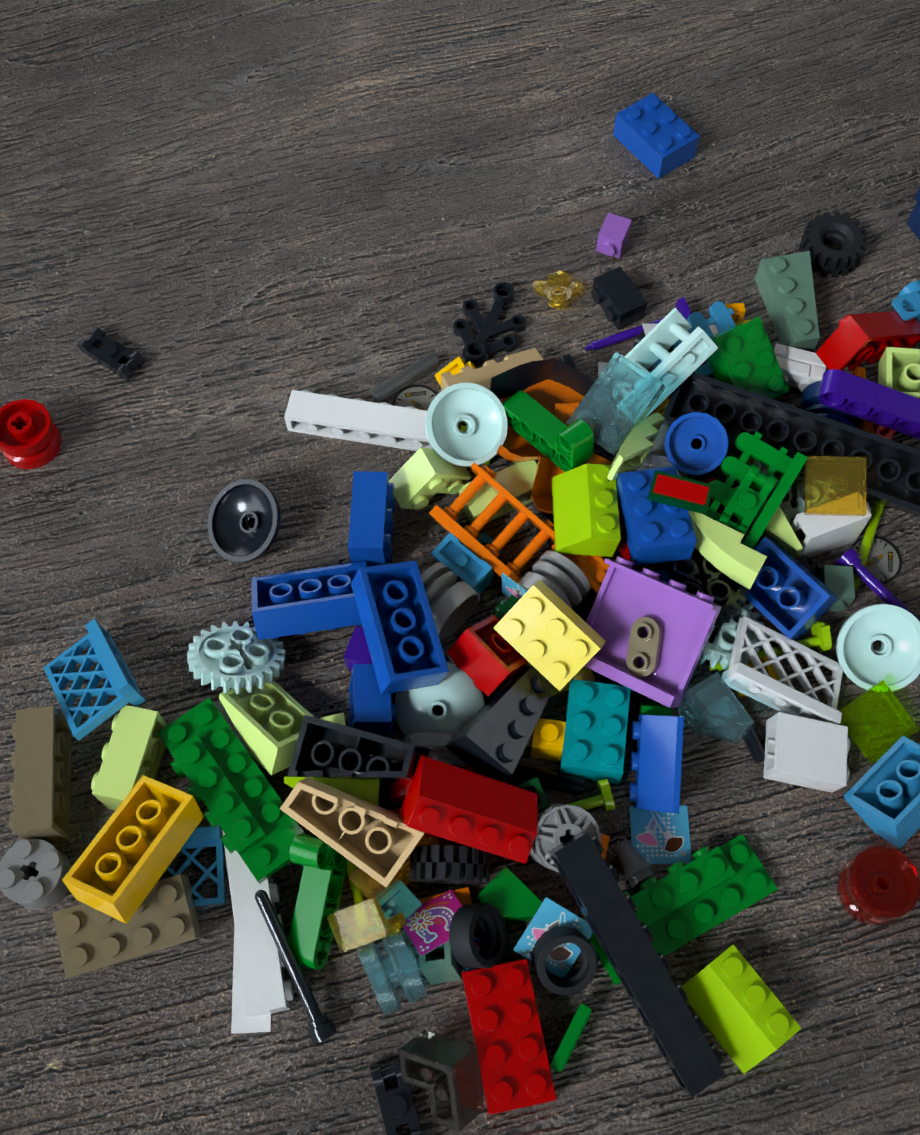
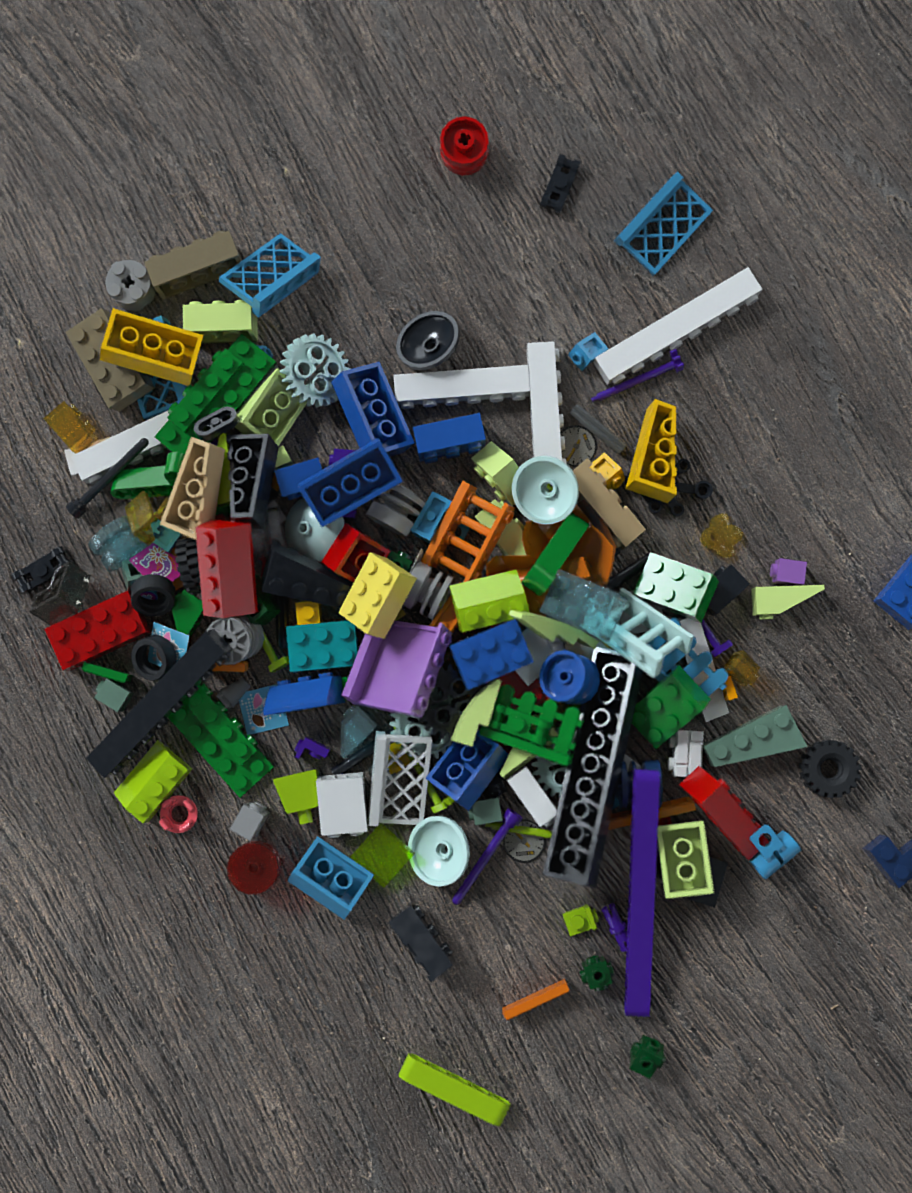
camera: 80 degrees right, 20 degrees up
(176, 273) = (650, 210): none -> dark azure fence
(203, 1009) = (71, 428): none -> clear yellow brick
(268, 789) = (216, 423): none -> black plate
(310, 499) = (462, 385): none -> white brick
(313, 367) = (586, 351): none -> dark azure bracket
(316, 279) = (678, 326): none -> white brick
(356, 288) = (675, 364): none -> dark purple piece
(452, 319) = (654, 459): none -> yellow wedge
(604, 1036) = (113, 694): none -> sand green brick
(609, 325) = (676, 587): none -> brick
(642, 249) = (777, 599): none -> yellowish green slope
(647, 648) = (385, 668): dark tan plate -> none
(680, 492) = (504, 668): tile -> none
(706, 291) = (742, 668): none -> clear yellow slope
(728, 771) = (316, 749): none -> dark purple bracket
(783, 805) = (299, 793): none -> lime torso
(806, 976) = (166, 819): none -> coral piece
(814, 874) = (250, 820): none -> light grey brick
(835, 486) = (552, 792): clear yellow tile -> none

